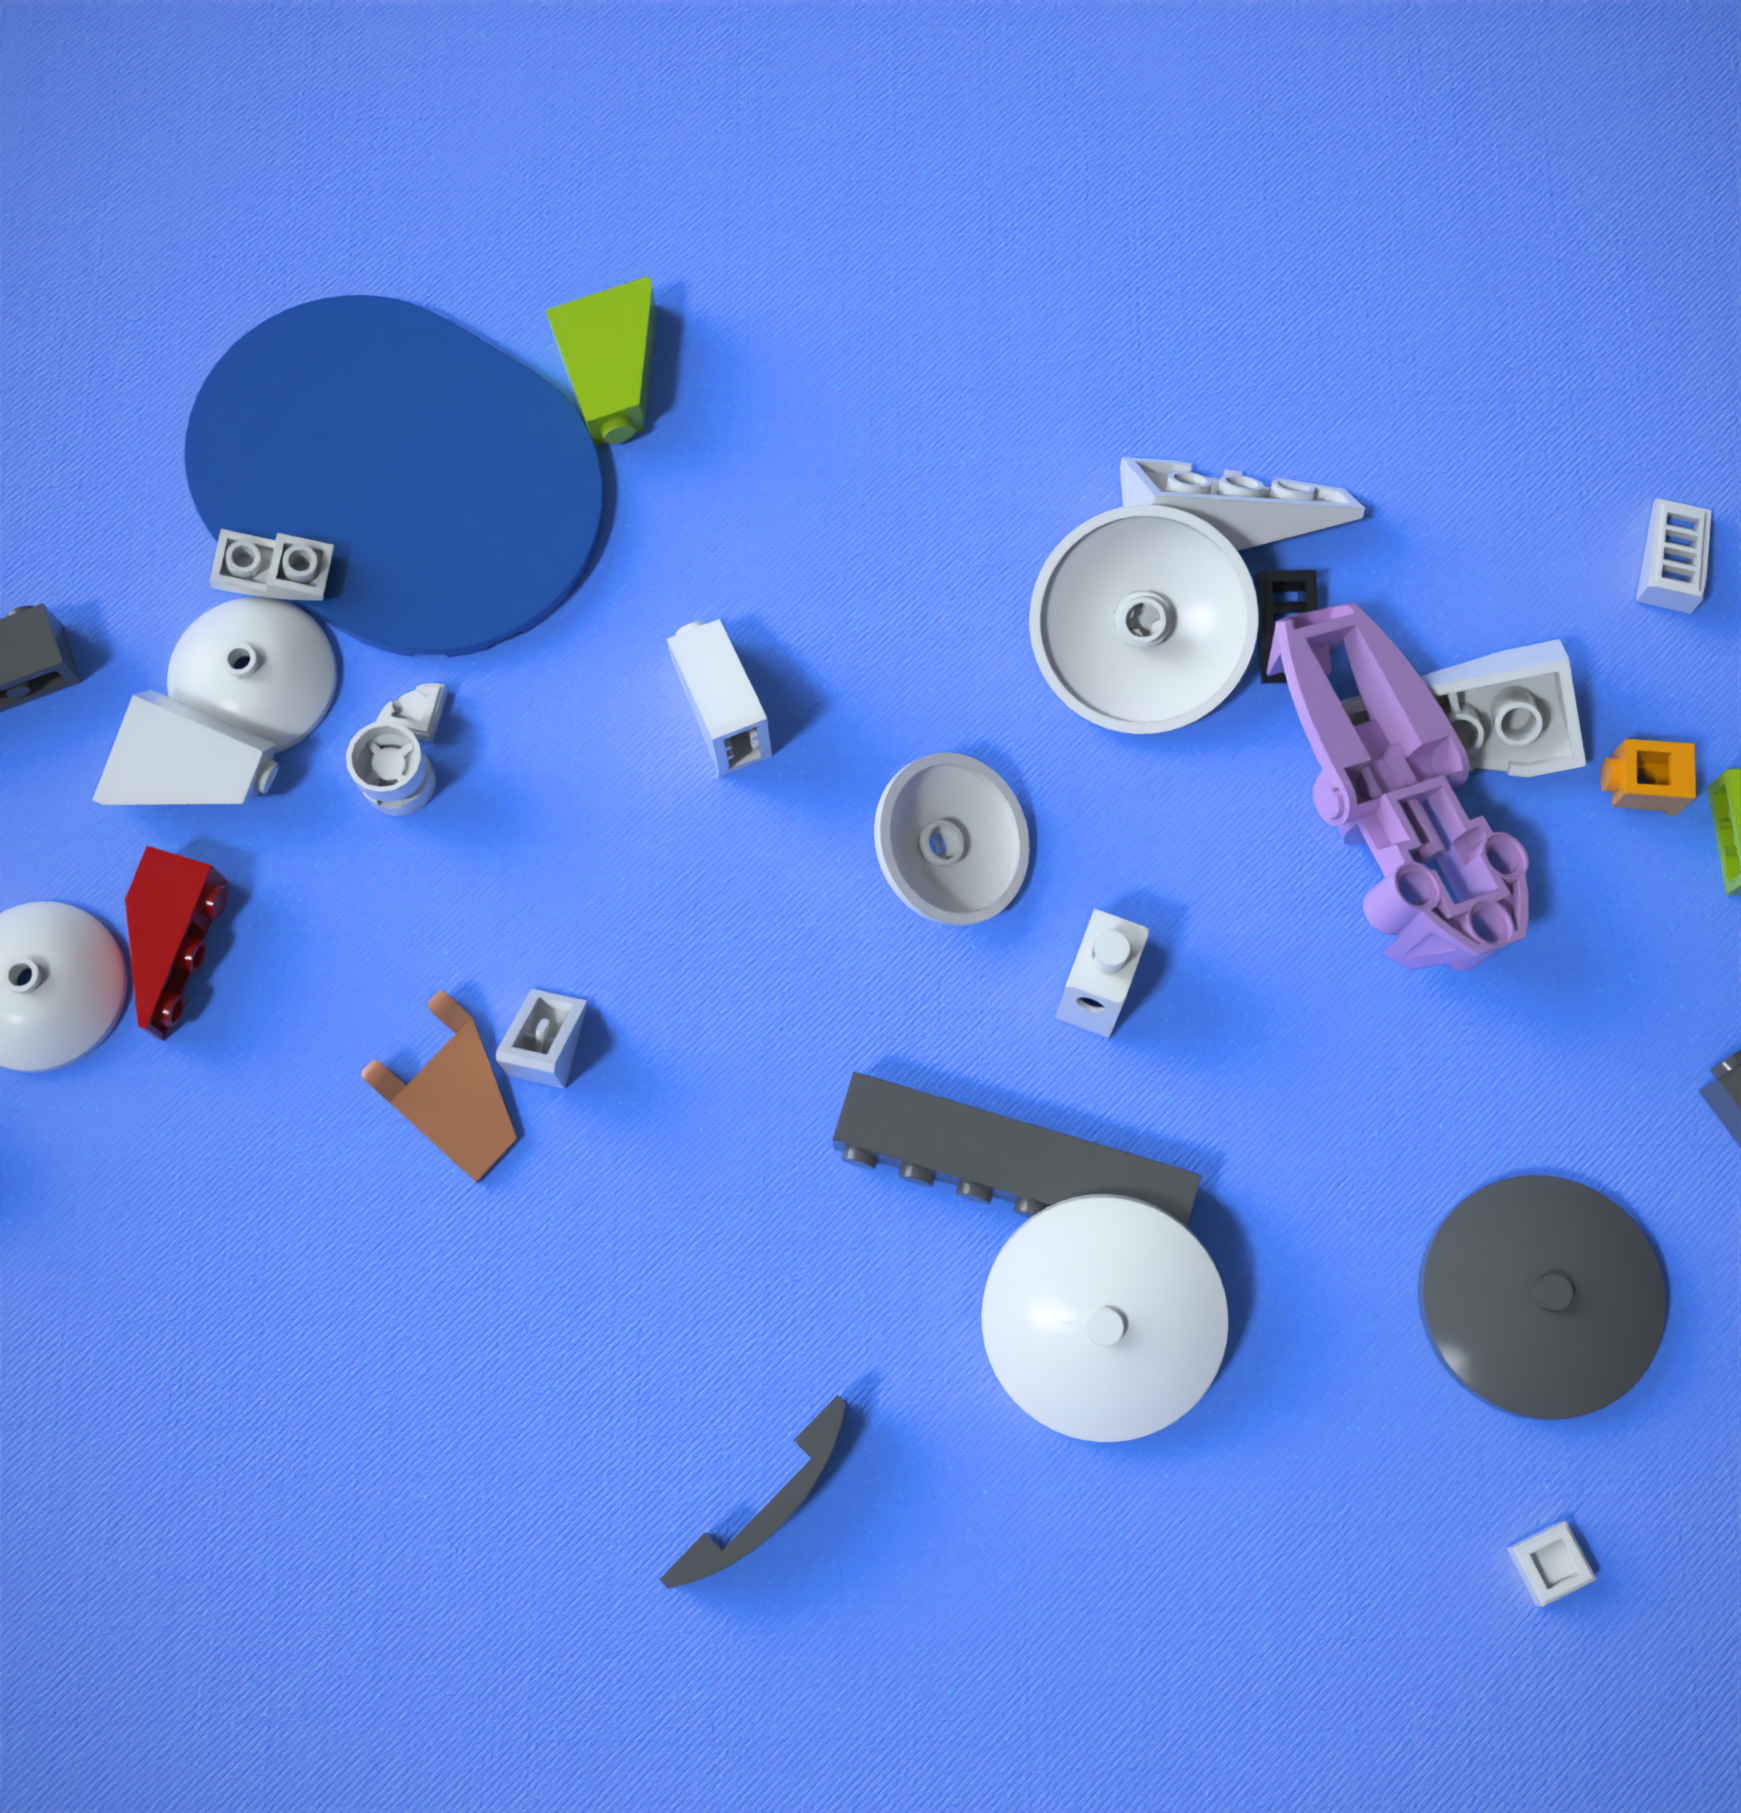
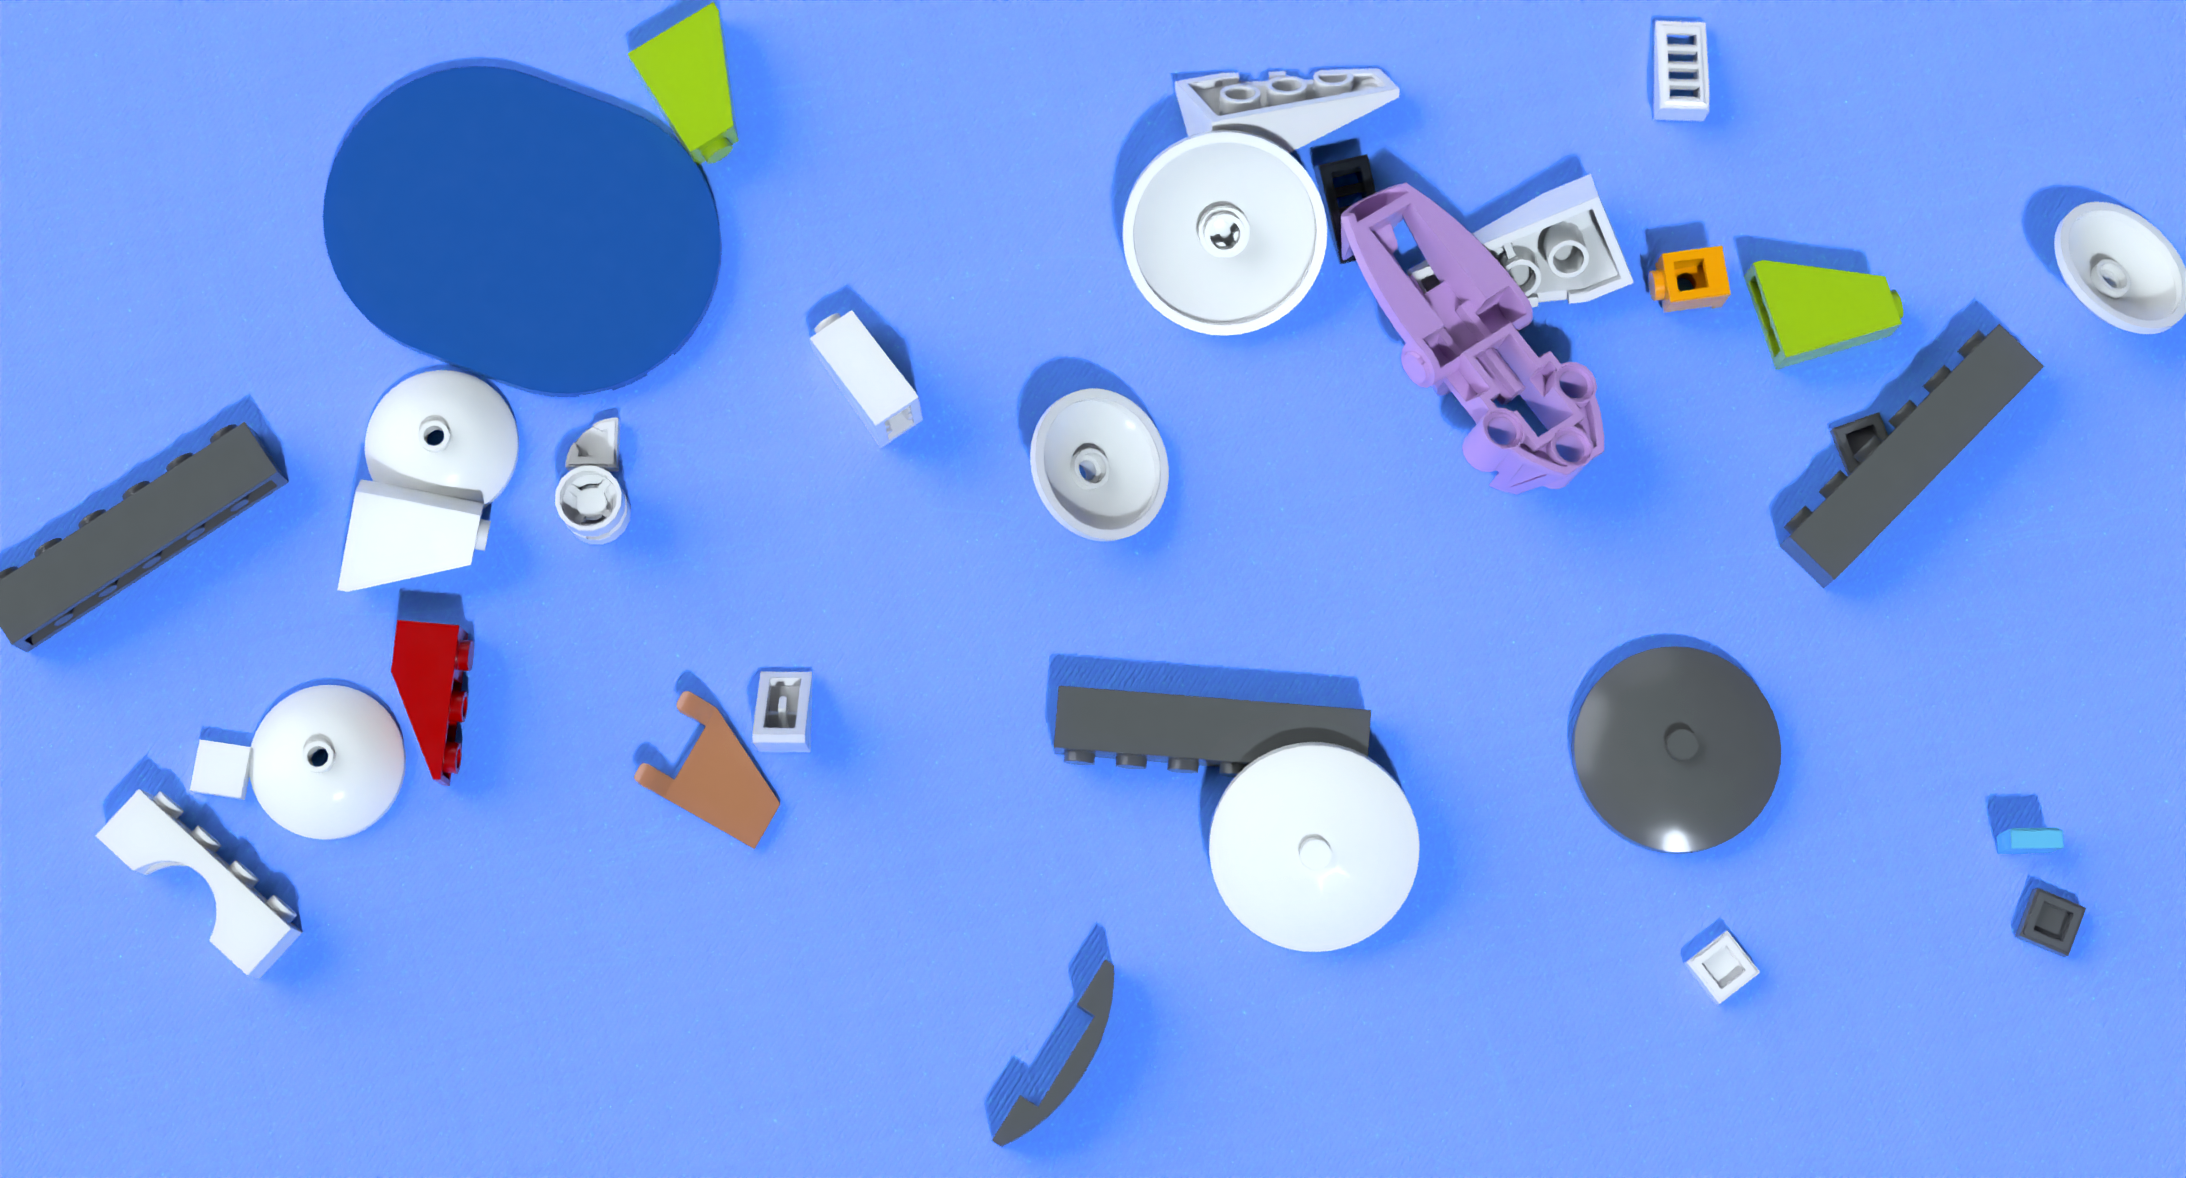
camera: 15 degrees left, 5 degrees up
(271, 568) = (437, 344): white slope -> none
(1102, 973) = (1252, 554): white torso -> none

